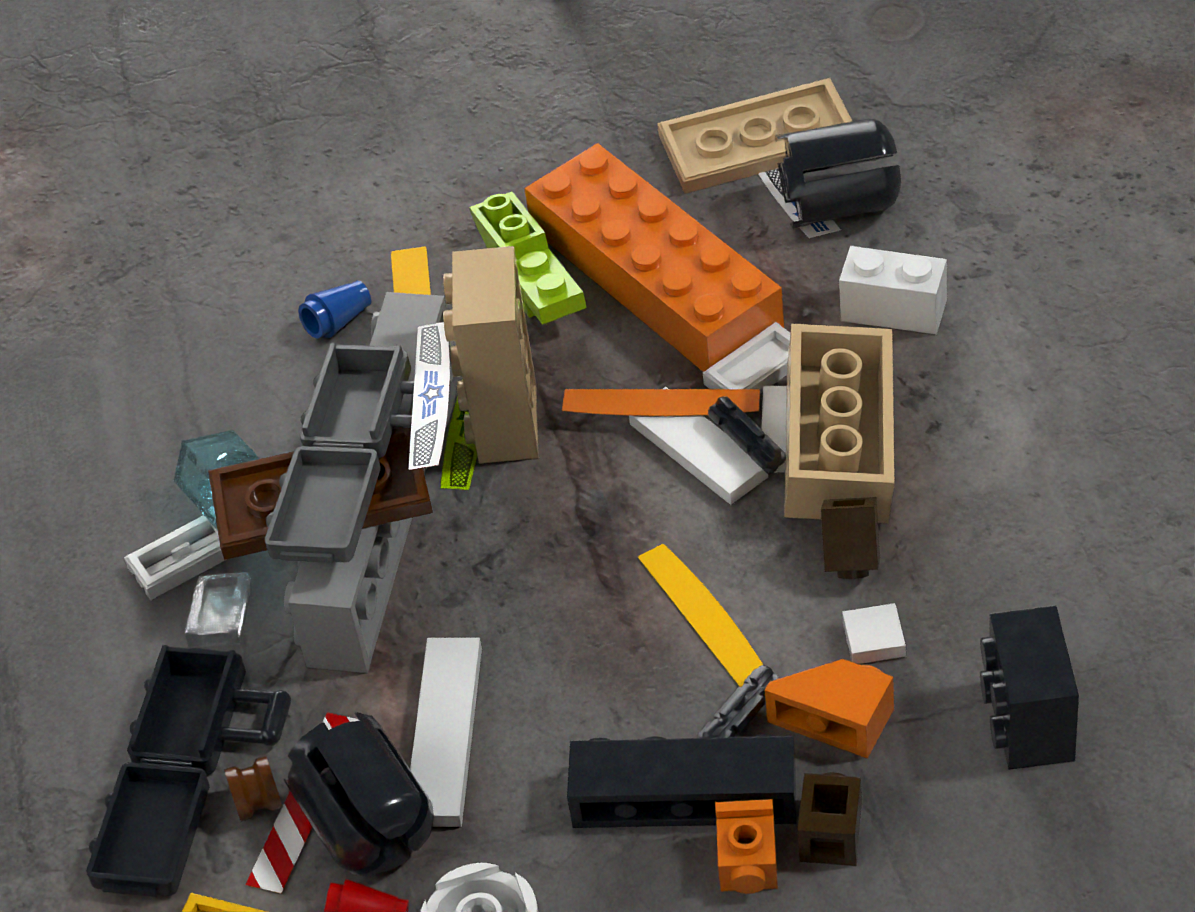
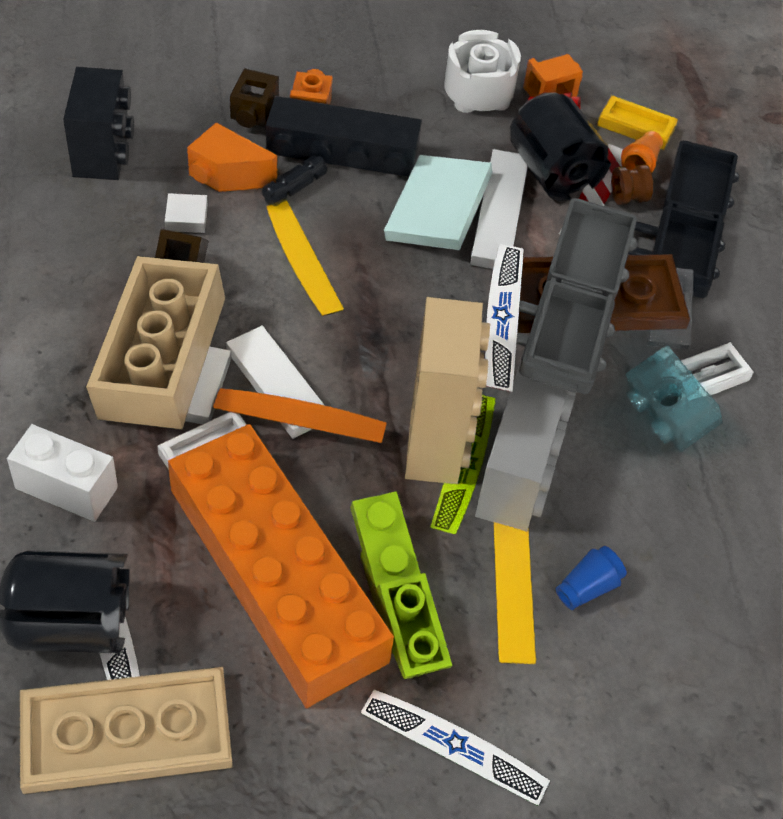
camera: 175 degrees right, 5 degrees up
(231, 853) = (642, 151): none -> orange cone
(451, 178) = (456, 745): none -> white sticker
(529, 709) = (438, 202): none -> light aqua tile
(747, 434) = (236, 356): black axle -> none

